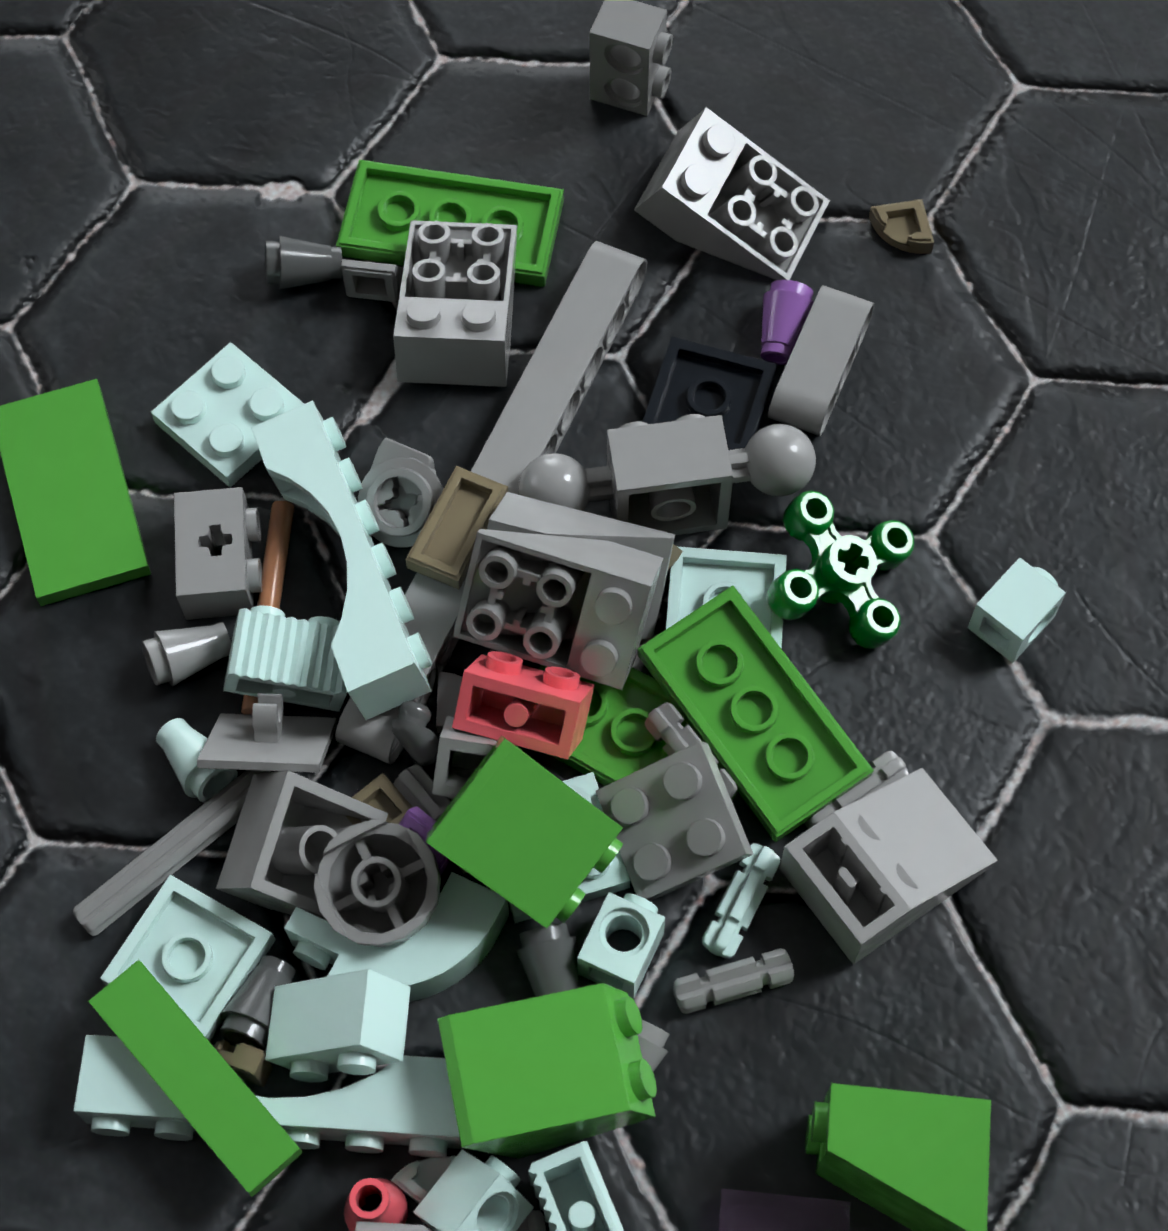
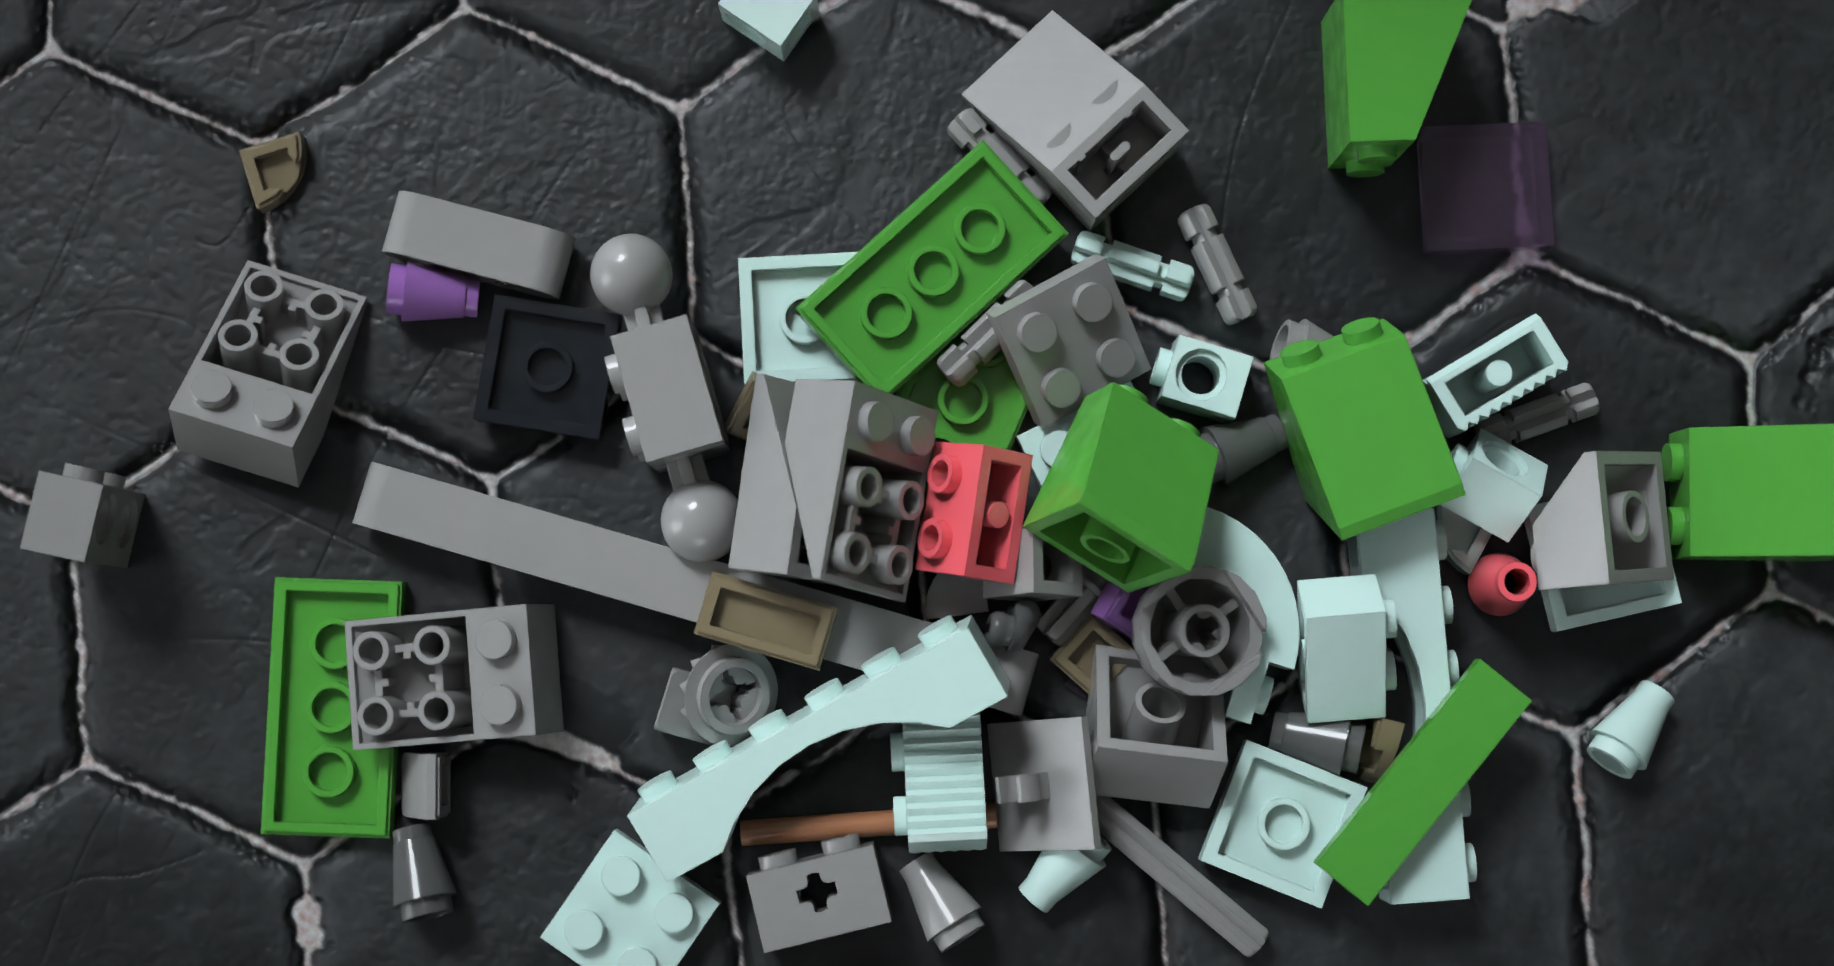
camera: 100 degrees left, 20 degrees up
(841, 570) = (708, 155): green gear -> none

